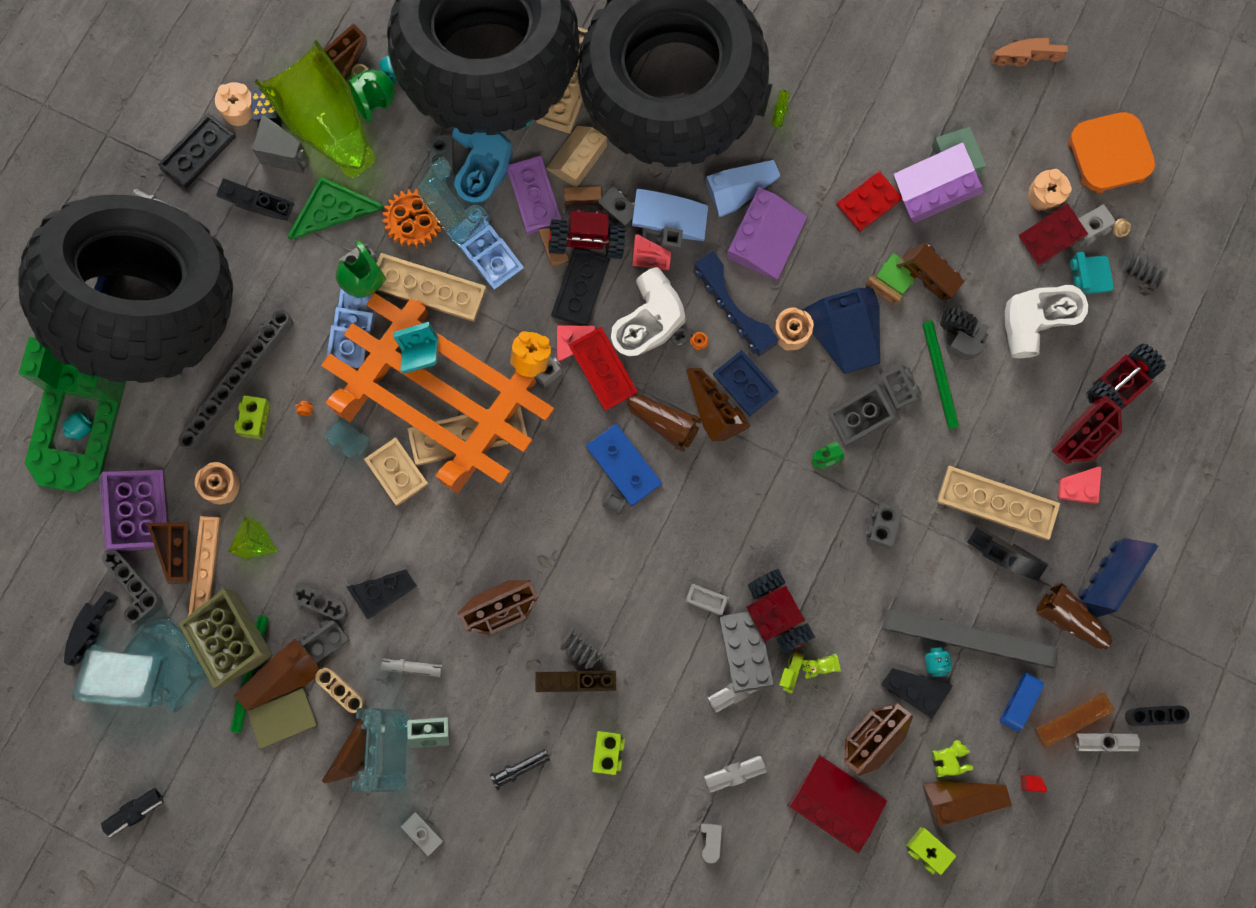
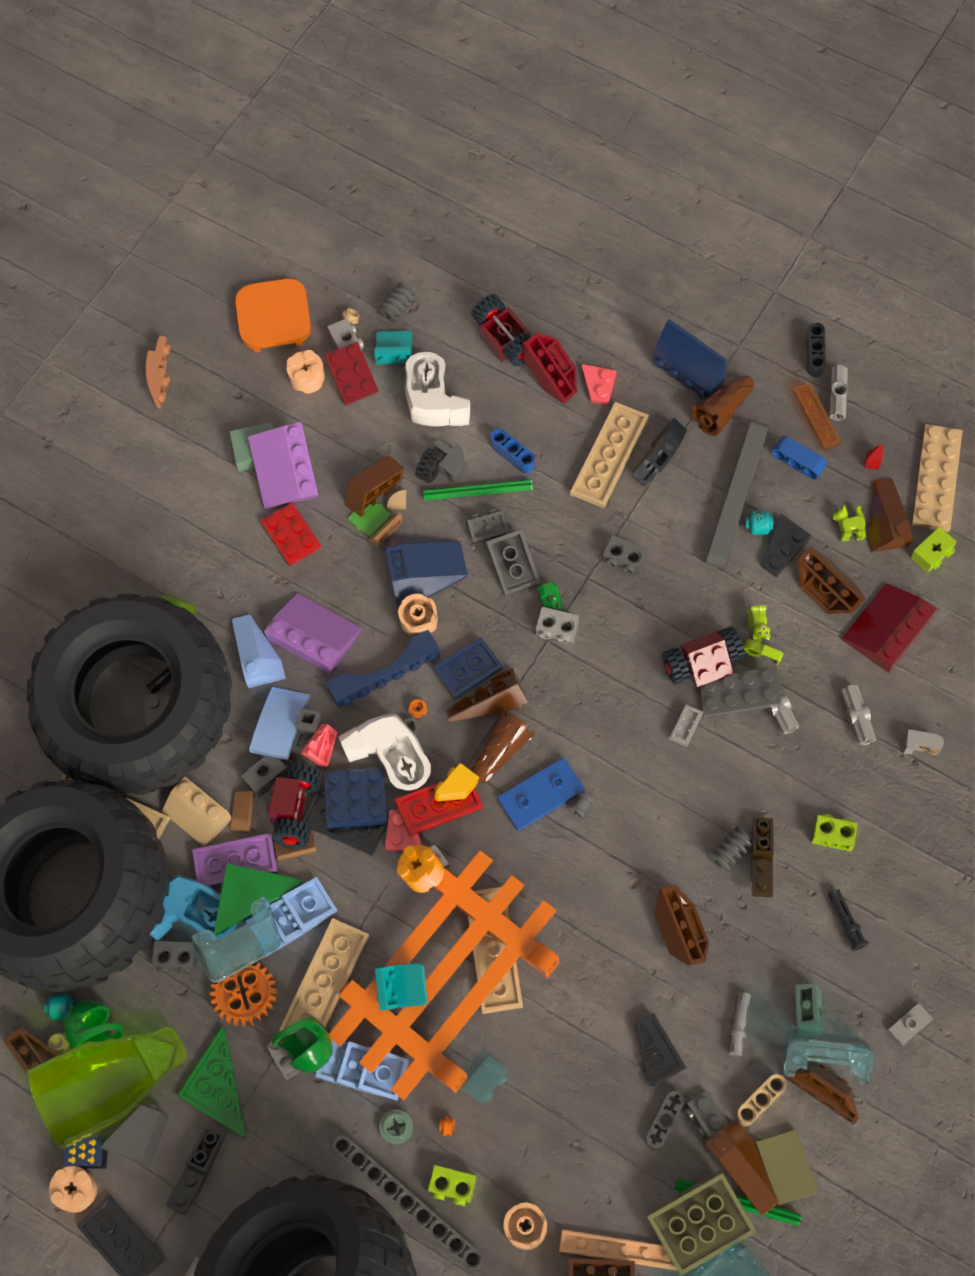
camera: 80 degrees left, 10 degrees down
(252, 540) = (591, 1192): clear neon green slope -> none
(294, 361) = (401, 1118): none -> sand green gear
(396, 471) = (528, 1028): tan plate -> none
(502, 203) = (245, 886): none -> green tile
(602, 292) = (355, 797): none -> dark blue plate
(620, 383) = (457, 785): none -> yellow slope
(804, 465) = (559, 620): none -> light grey brick
(918, 298) = (397, 500): none -> tan tile
(994, 398) = (516, 458): none -> blue beam
(1020, 855) = (937, 477): none -> tan plate

